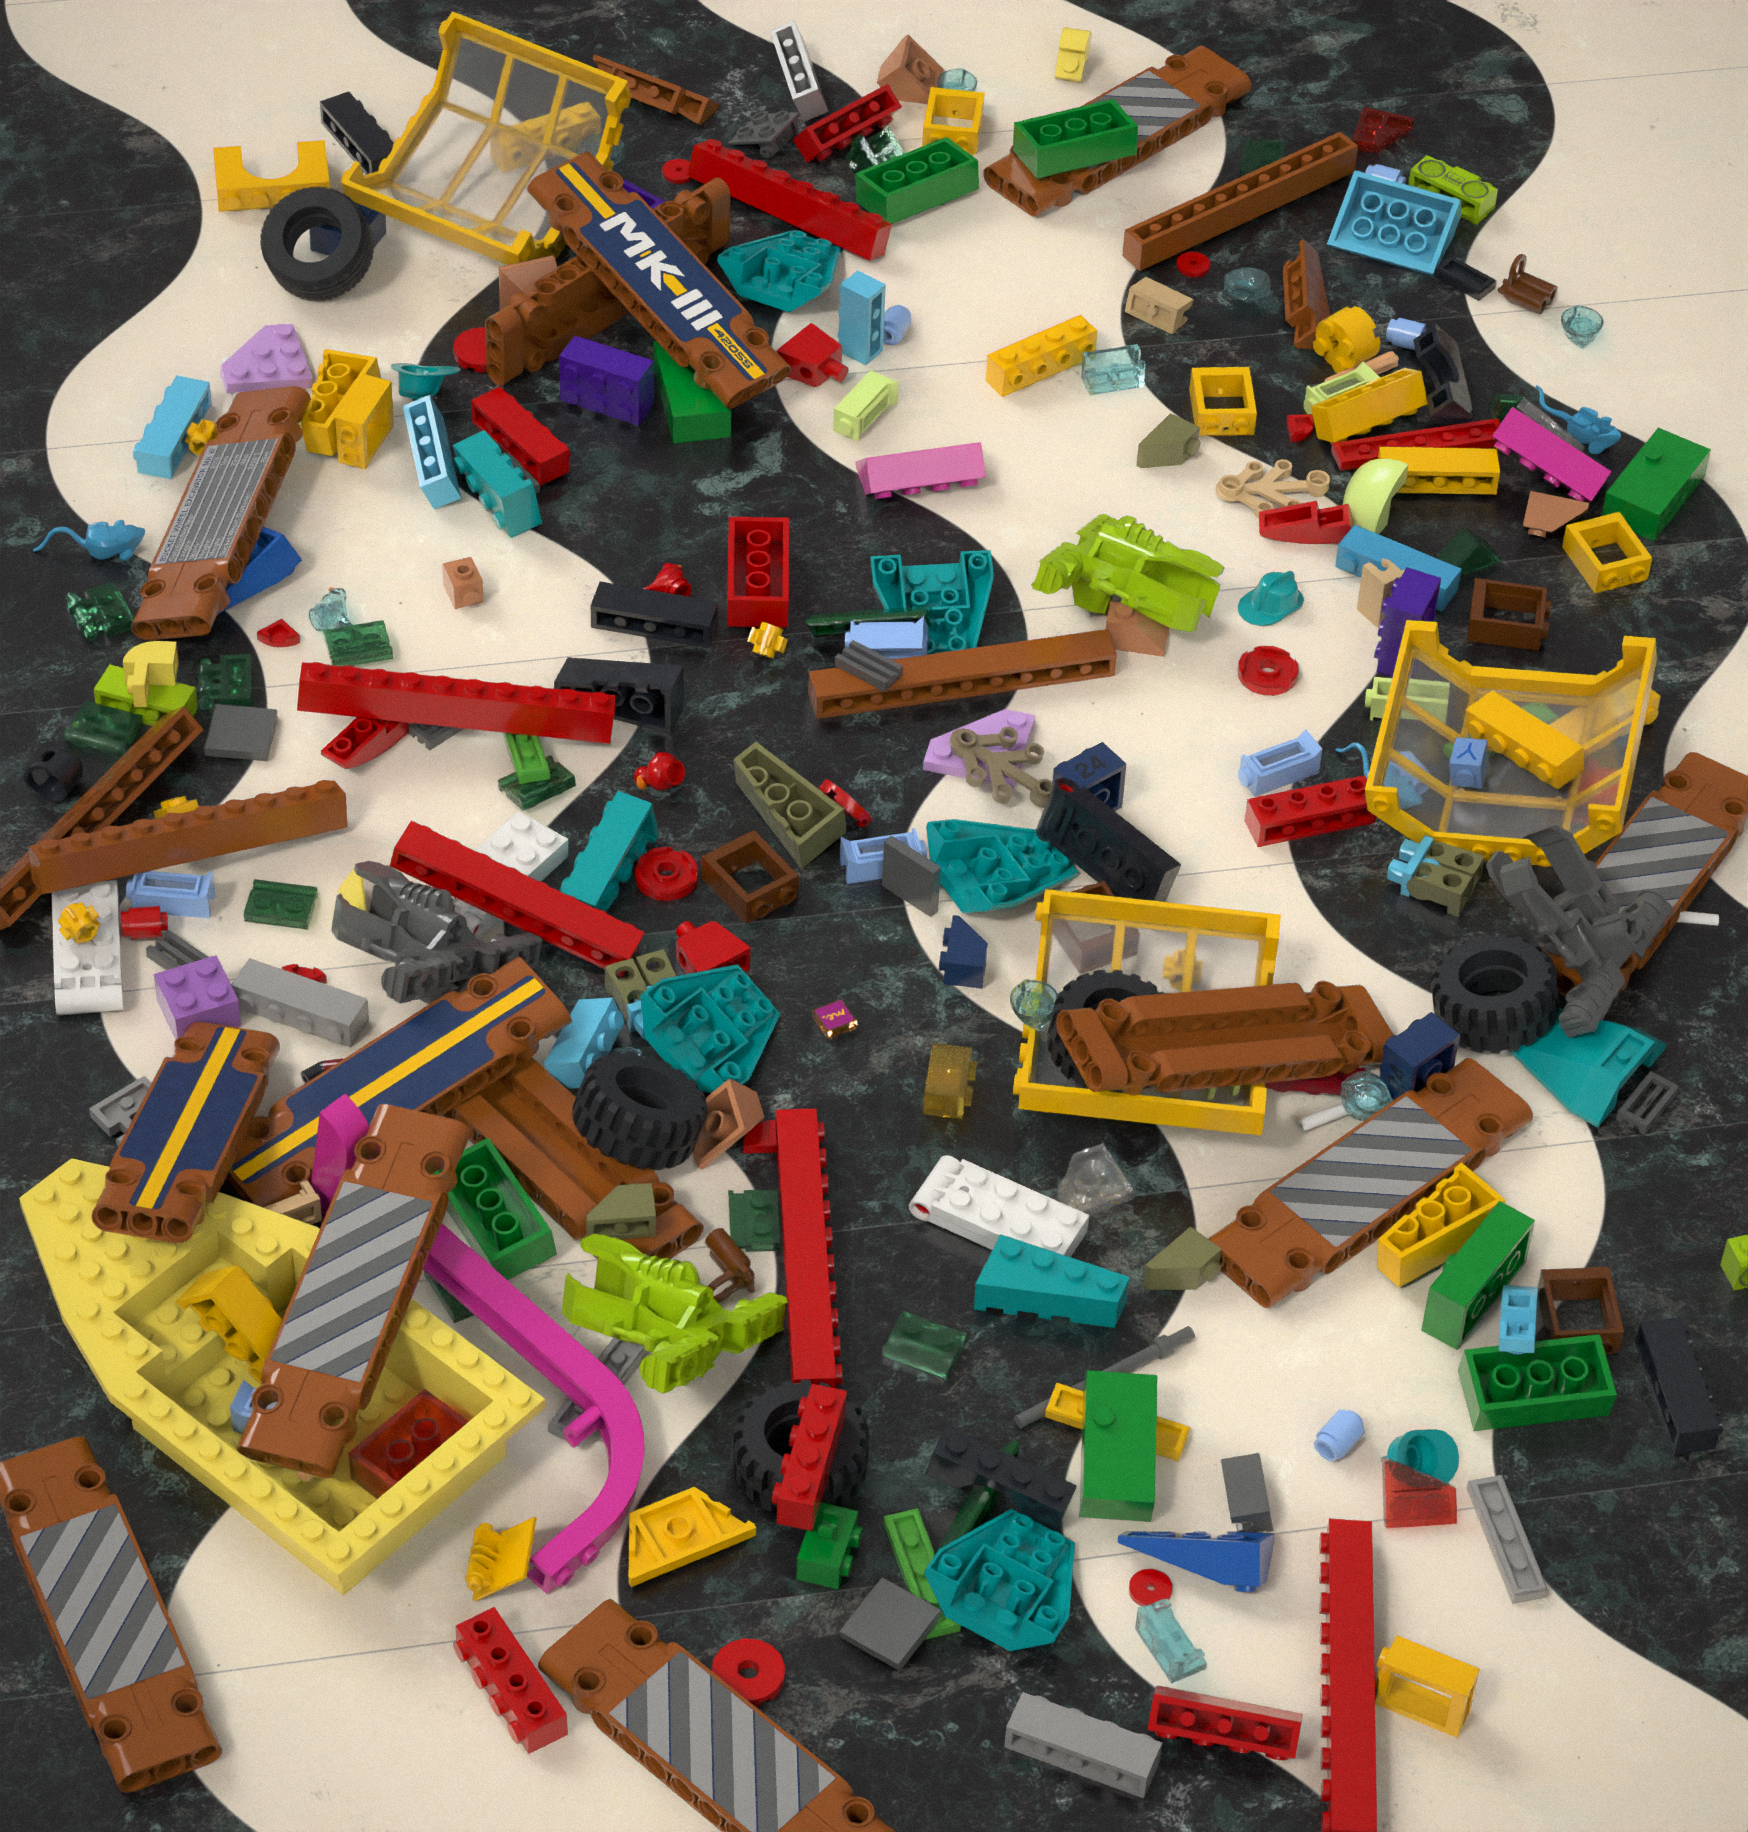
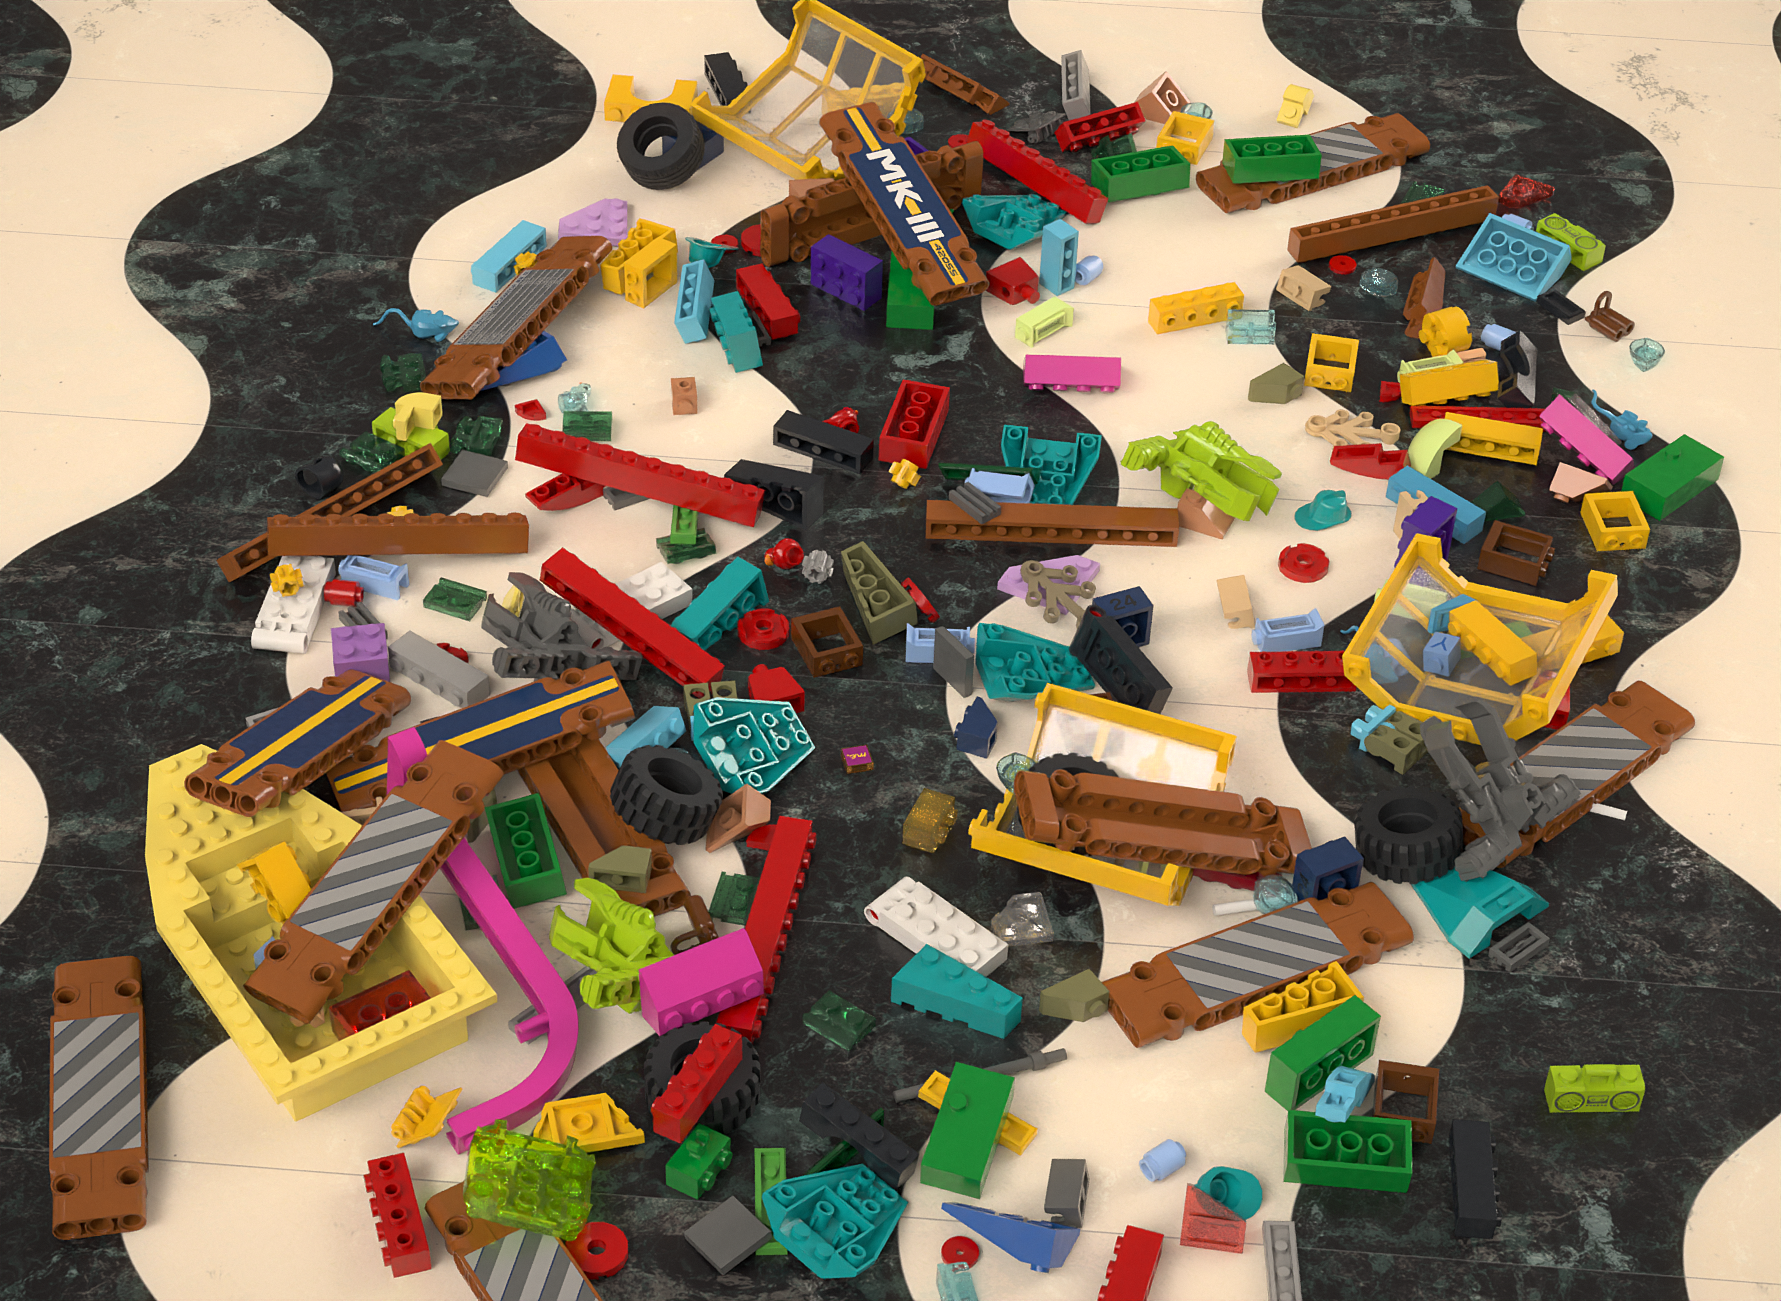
camera: 15 degrees right, 5 degrees down
(438, 356) = (725, 240): none -> red wheel
(653, 1611) = (528, 1181): none -> clear neon green plate
(705, 781) = (817, 566): none -> light grey gear
(768, 1336) = (700, 982): none -> dark pink slope
(1209, 735) = (1236, 601): none -> tan hinge
(1455, 715) = (1435, 622): none -> dark azure slope

